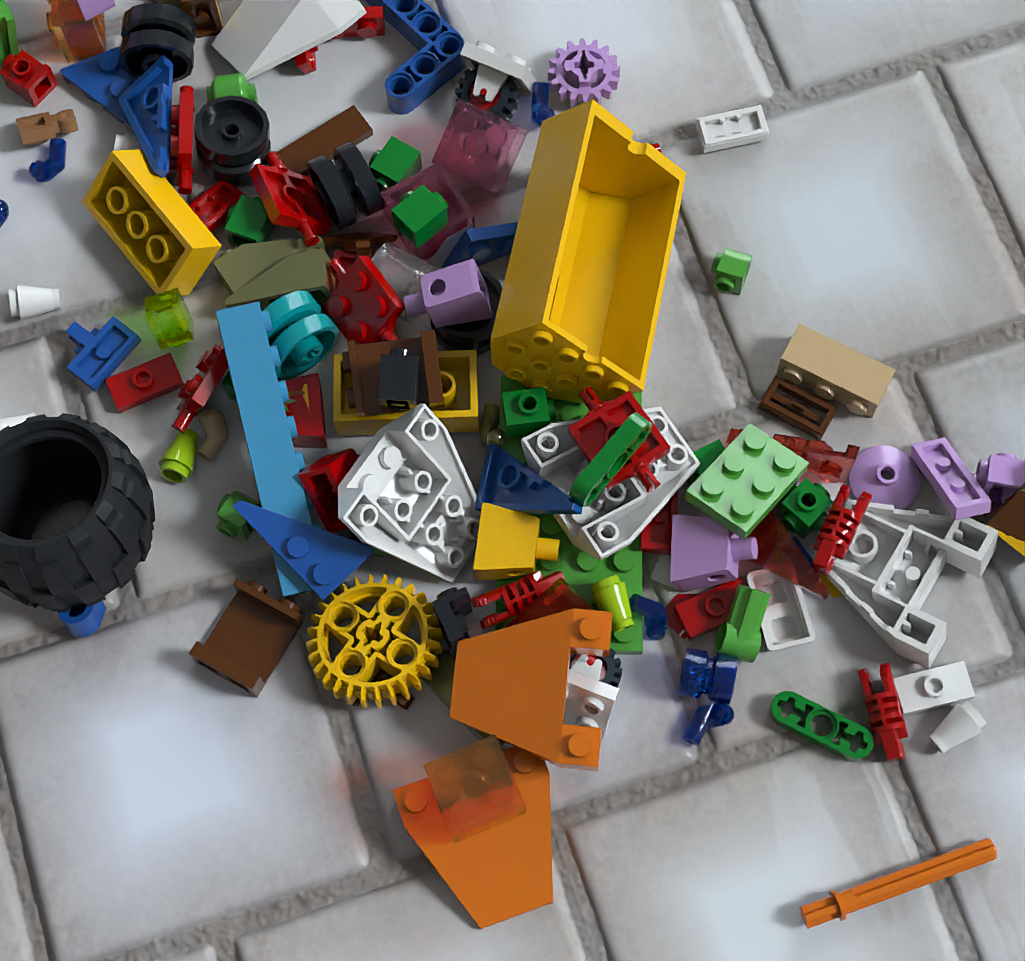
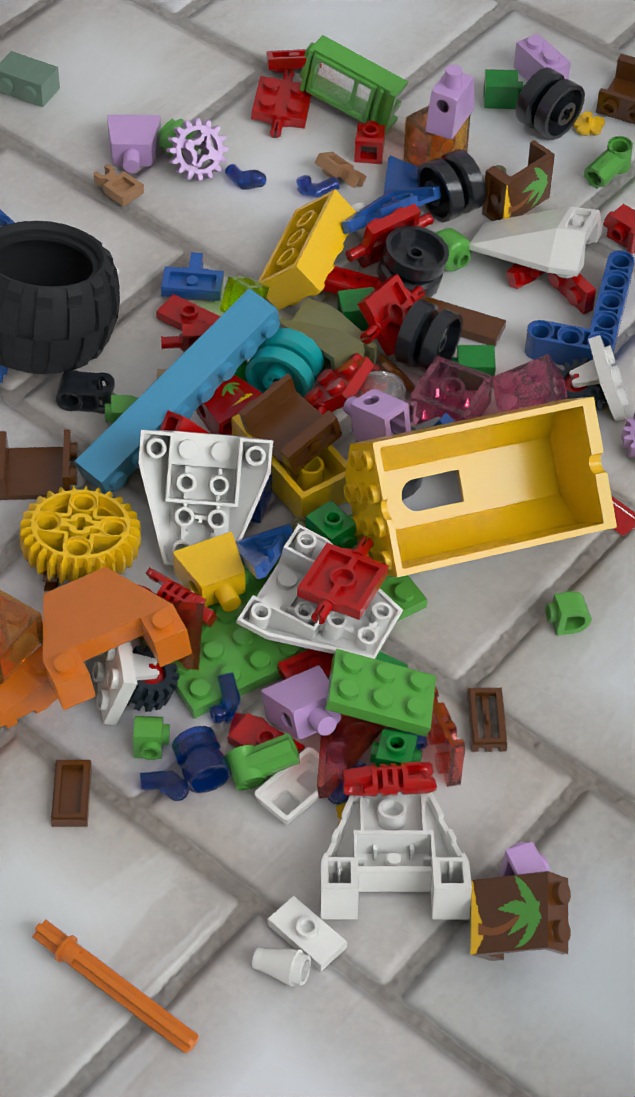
camera: 55 degrees right, 20 degrees down
(33, 301) = (200, 226): white cone -> none
(179, 457) = (145, 361): lime cone -> none
(179, 538) = (83, 391): none -> black piece
(313, 553) = (117, 451): blue wing -> none
(399, 380) = (279, 415): black brick -> none
(420, 215) = (433, 380): green brick -> none
(450, 609) = (131, 560): black bracket -> none
(539, 103) = (611, 424): clear blue arm -> none
(610, 459) = (338, 564): green beam -> none
(612, 596) = (215, 659): lime cone -> none
(650, 706) = (149, 737): none -> bright green plate
(665, 810) = (71, 793): none -> reddish brown tile
(835, 371) = (536, 724): tan brick -> none
(842, 746) = (222, 878): green beam -> none
(867, 476) = (474, 824): lavender dish -> none
(885, 713) = (258, 903): red hinge -> none
(950, 478) = (488, 845): lavender plate -> none

